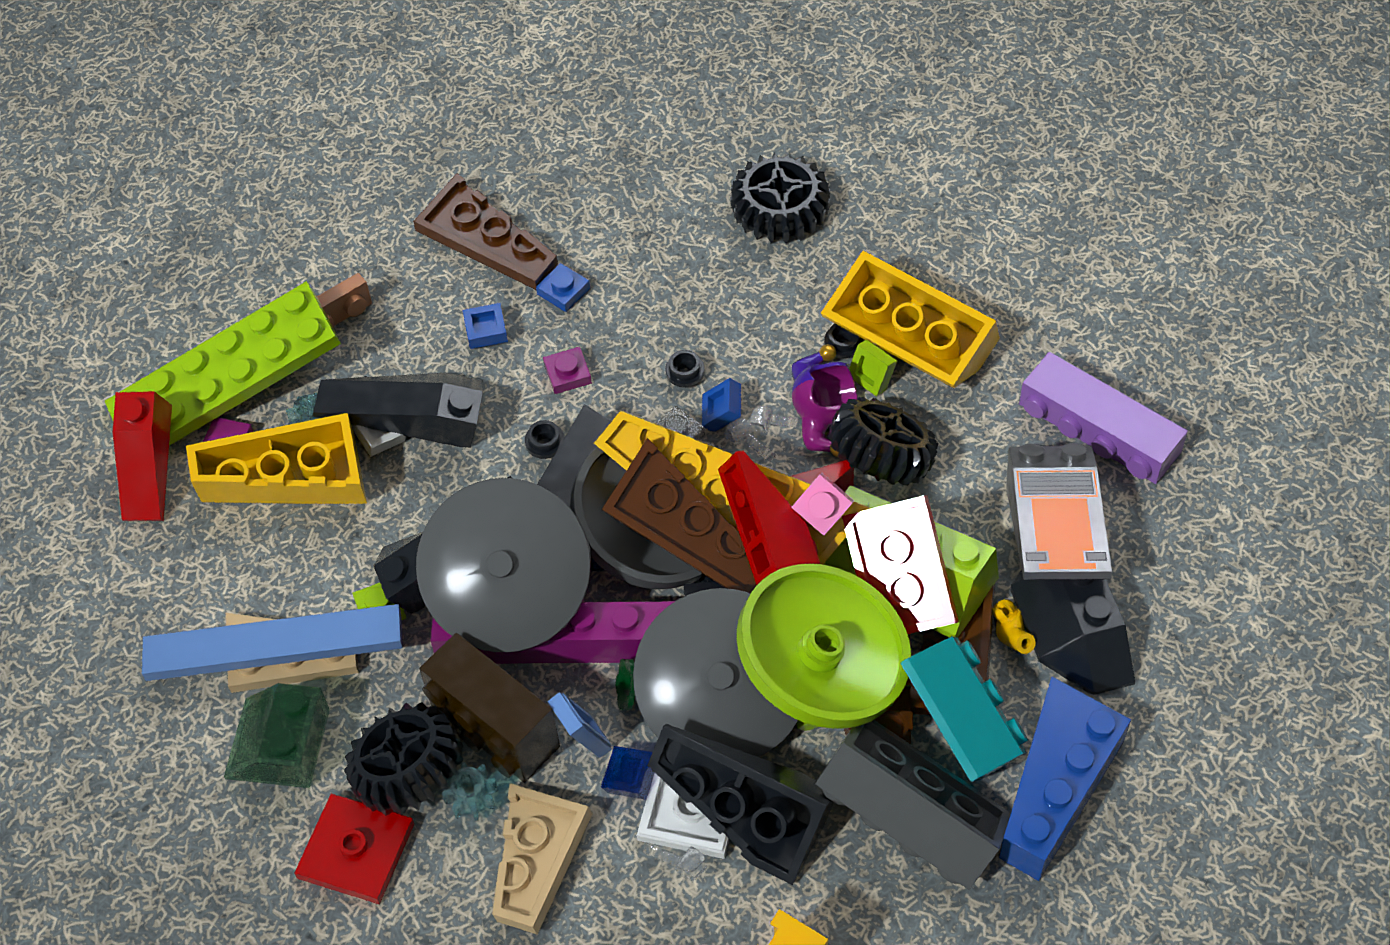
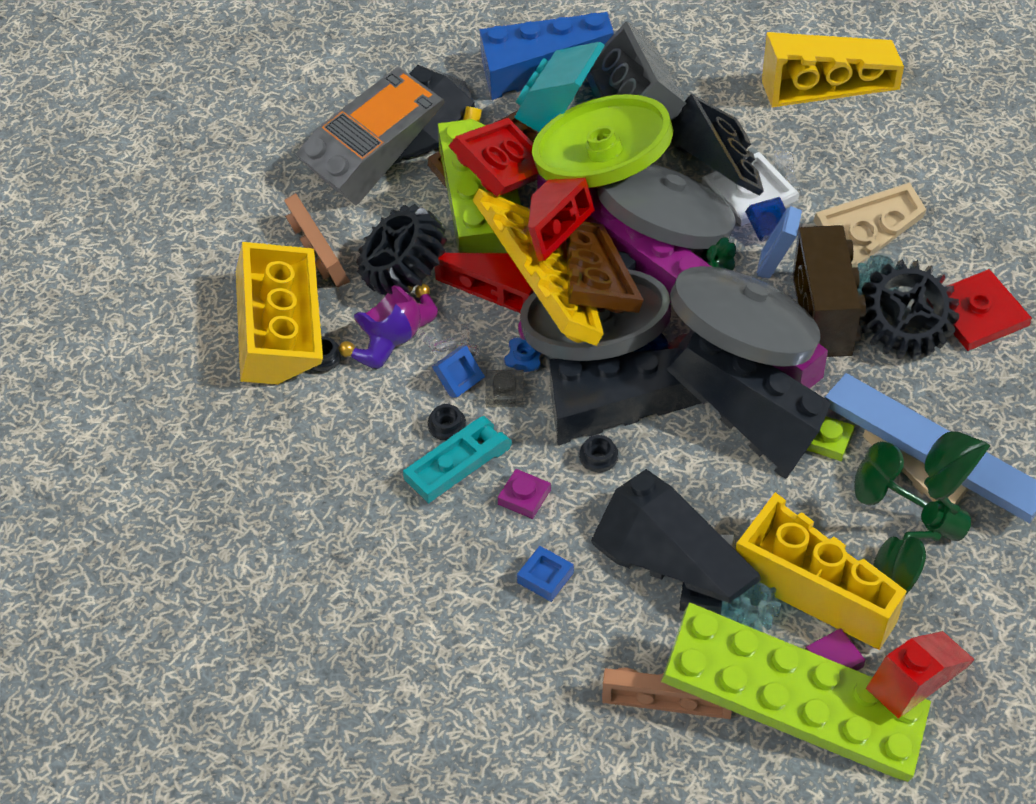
camera: 135 degrees left, 5 degrees down
(219, 538) = (948, 466): none -> dark green plant
(279, 736) = (979, 395): clear green slope -> none
(477, 230) = (457, 669): wing -> none
(563, 287) = (450, 561): blue plate -> none
(642, 348) = (456, 459): none -> teal plate
(759, 205) = (217, 494): black gear -> none
(822, 504) = (510, 191): bright pink brick -> none
(872, 367) = (335, 314): lime plate -> none
(976, 411) = (327, 262): none -> nougat plate
(1102, 418) = (256, 182): brick -> none

